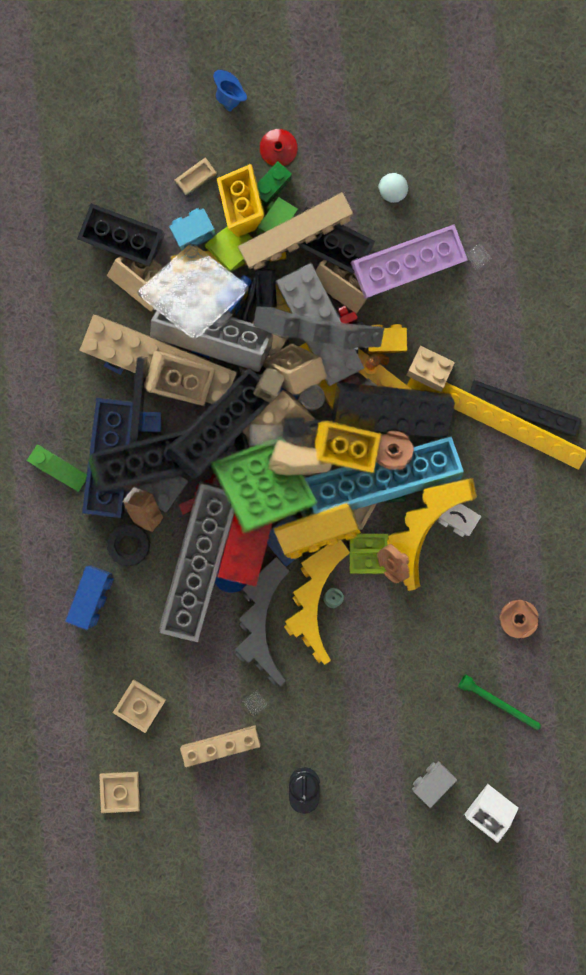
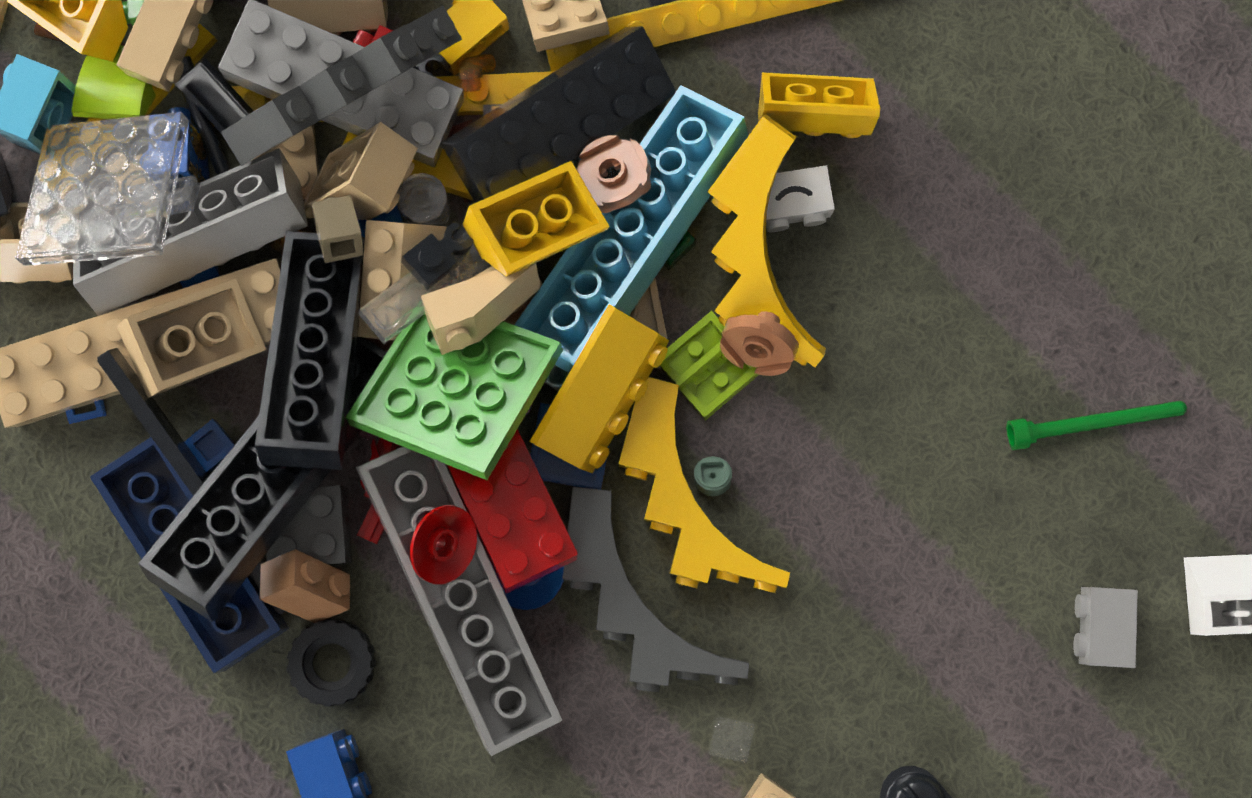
camera: 40 degrees left, 5 degrees down
(57, 467) = (120, 637): bright green slope -> none
(208, 540) = (443, 544): none -> red dish
(499, 488) = (820, 103): none -> yellow slope
(530, 619) = (1030, 258): nougat plate -> none

